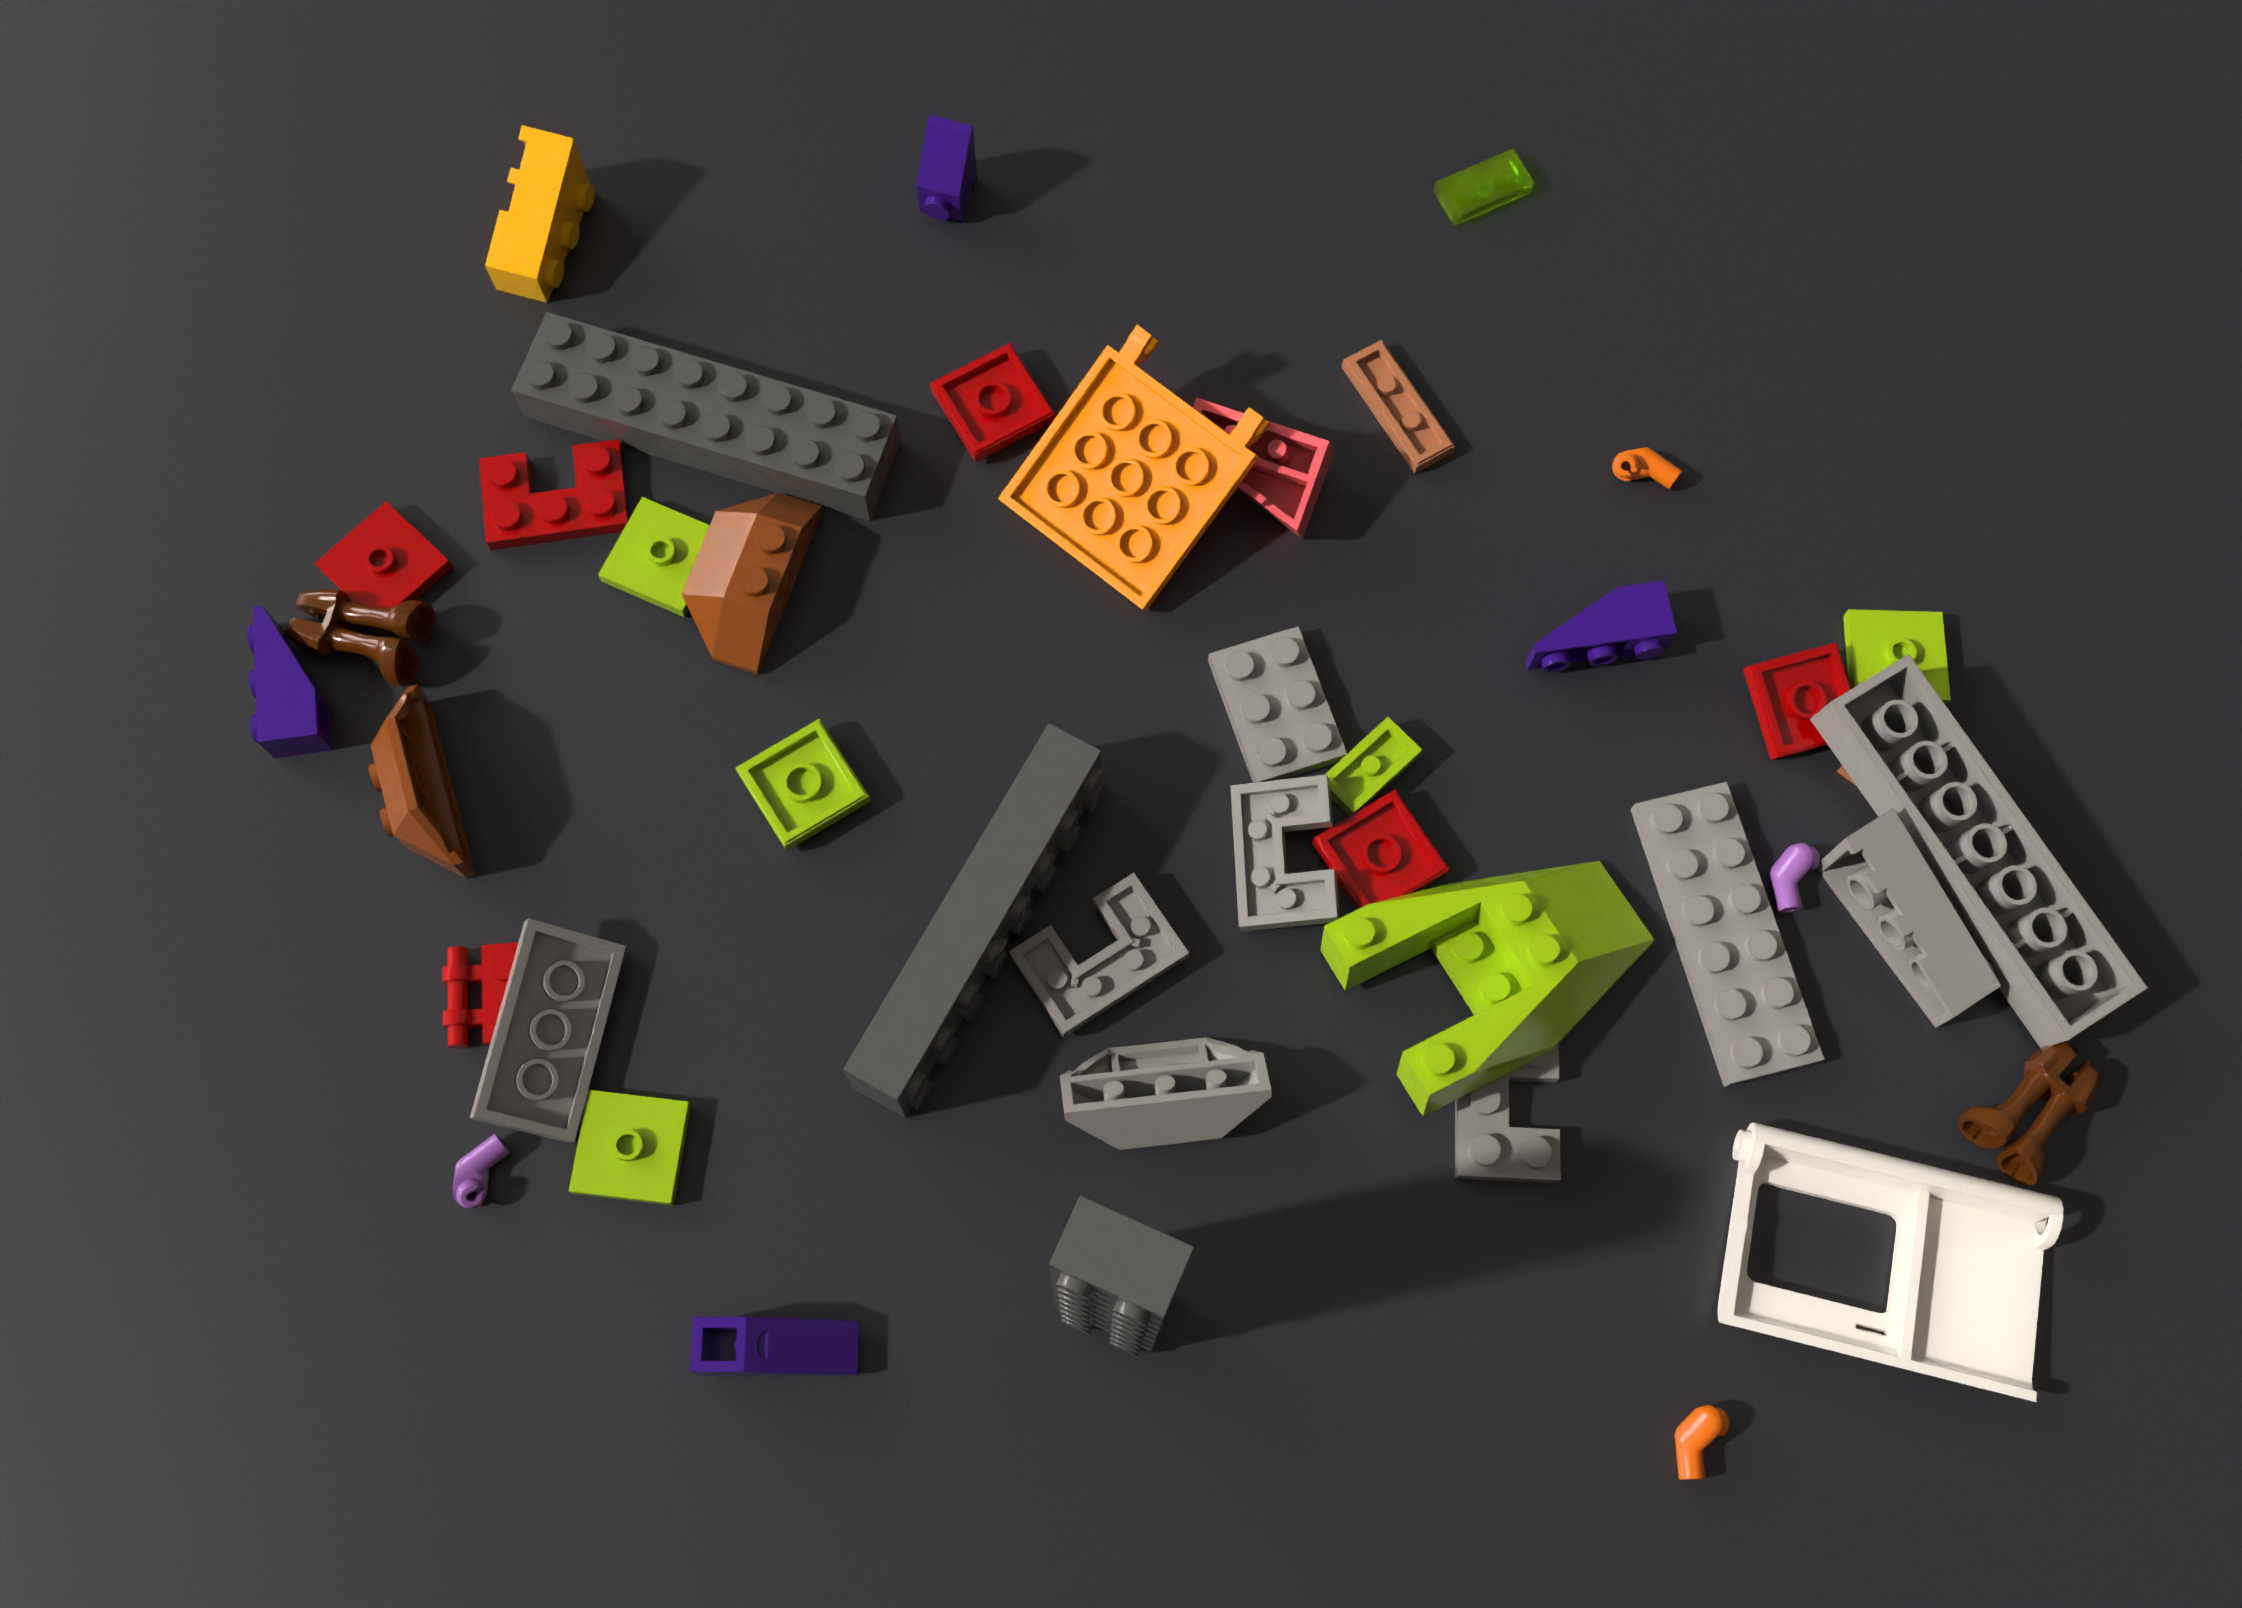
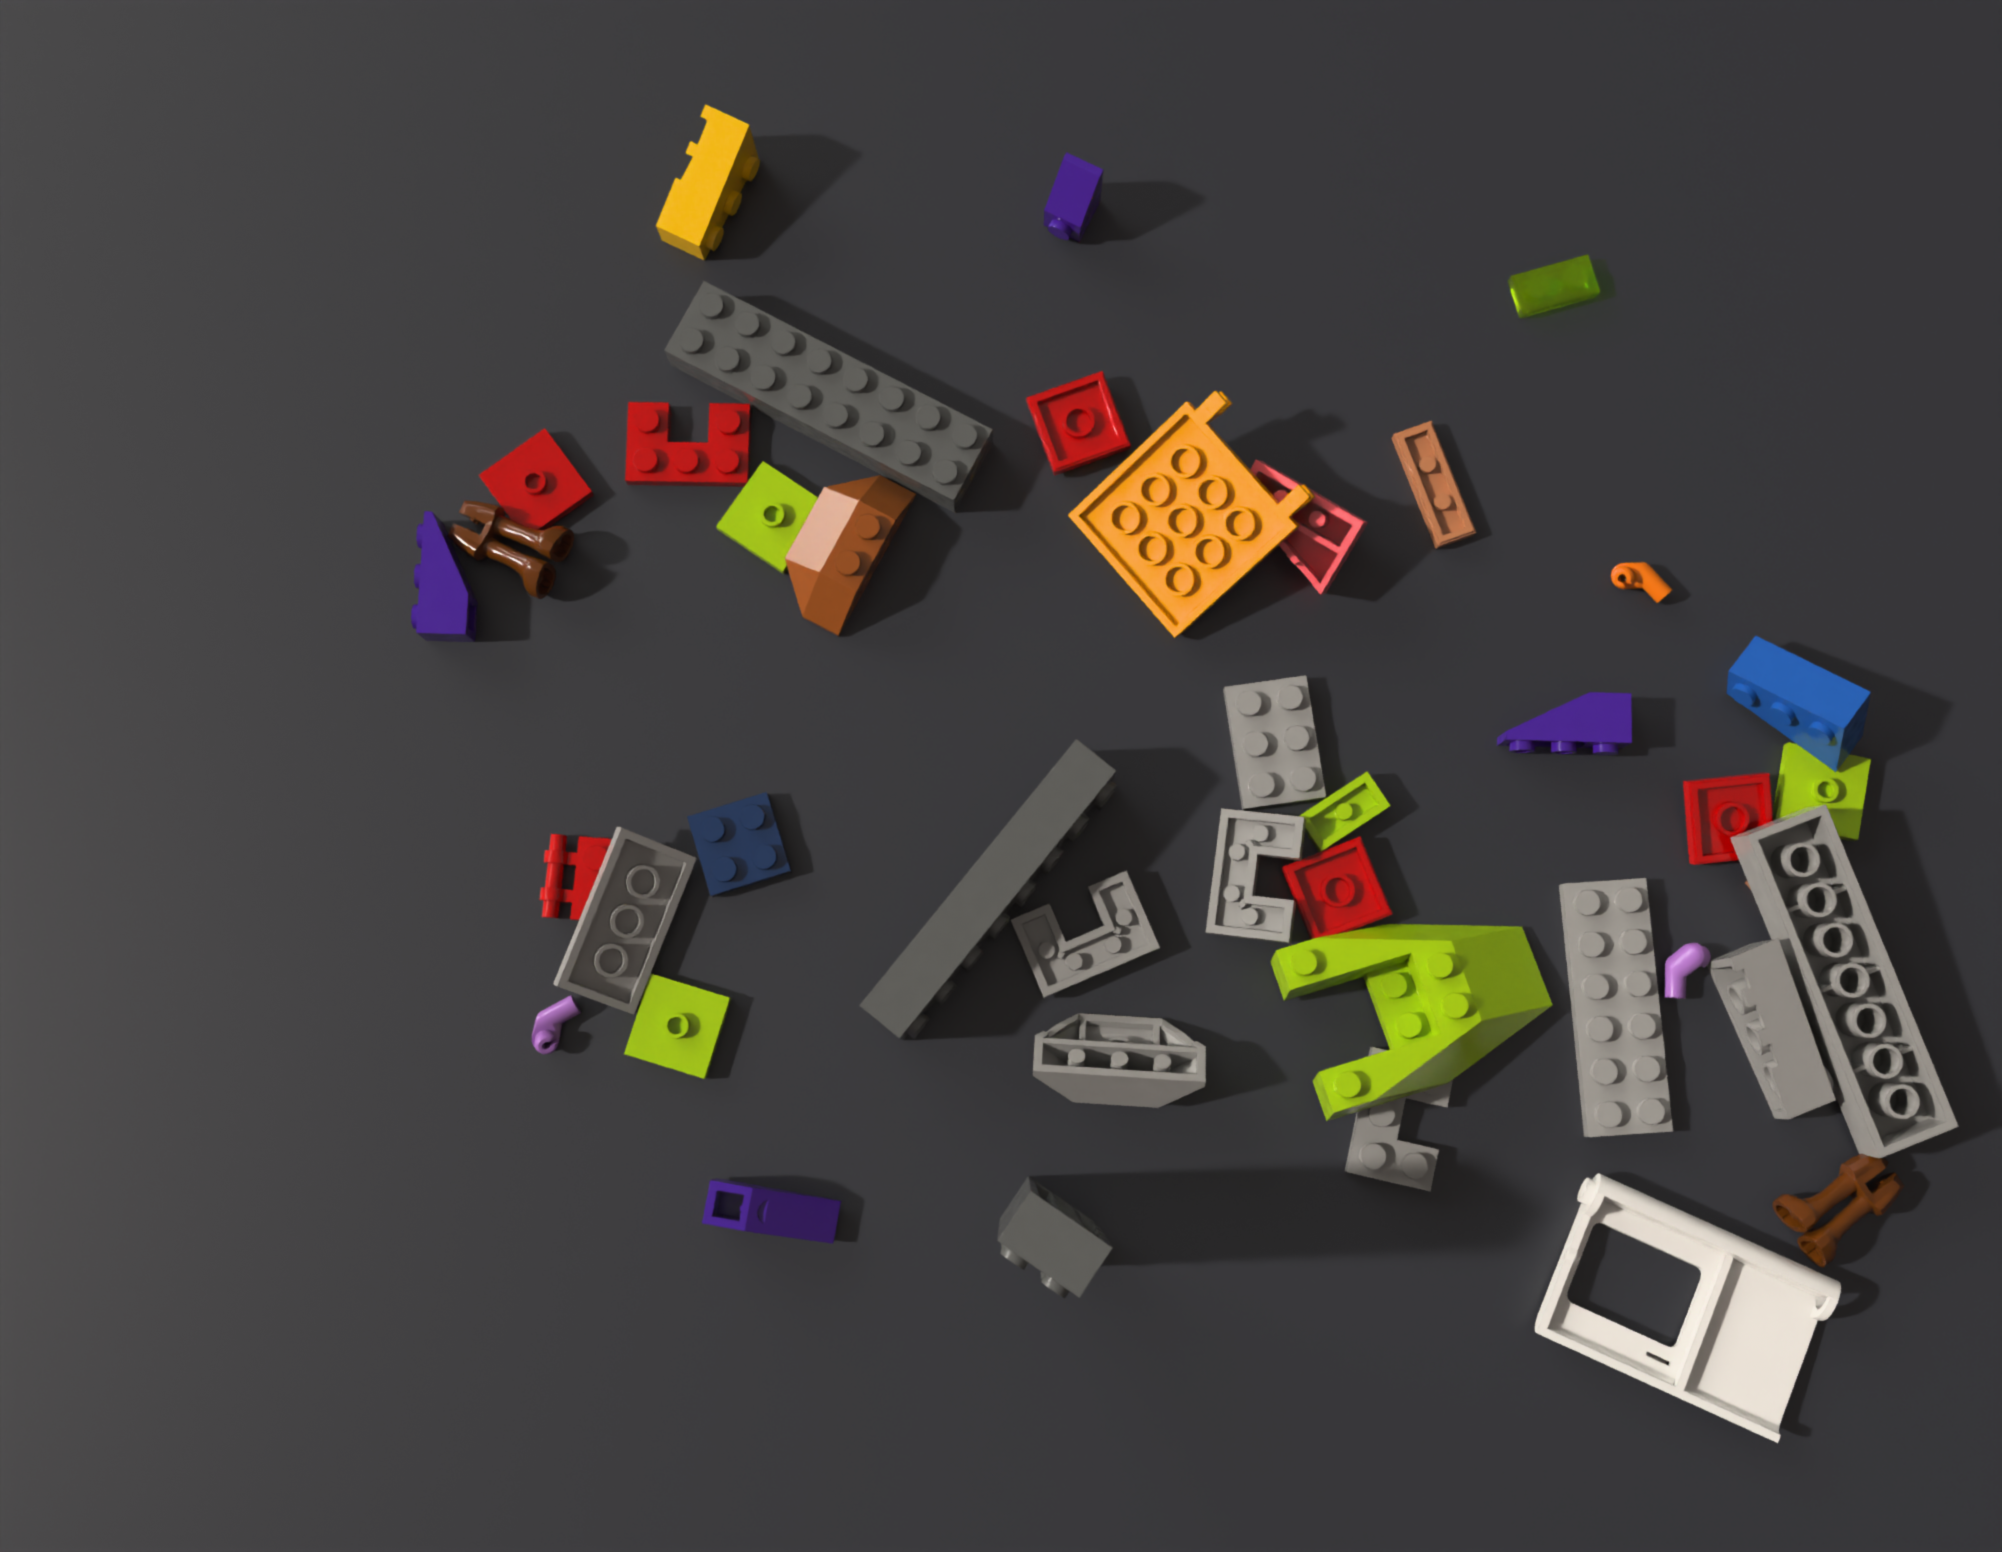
camera: 15 degrees right, 10 degrees up
(418, 785) = (543, 689): dark orange wedge -> none
(675, 924) = (739, 844): none -> dark blue plate
(803, 784) = (862, 743): lime plate -> none
(1694, 1436) = (1494, 1415): orange arm -> none
(1852, 558) = (1800, 700): none -> blue wedge

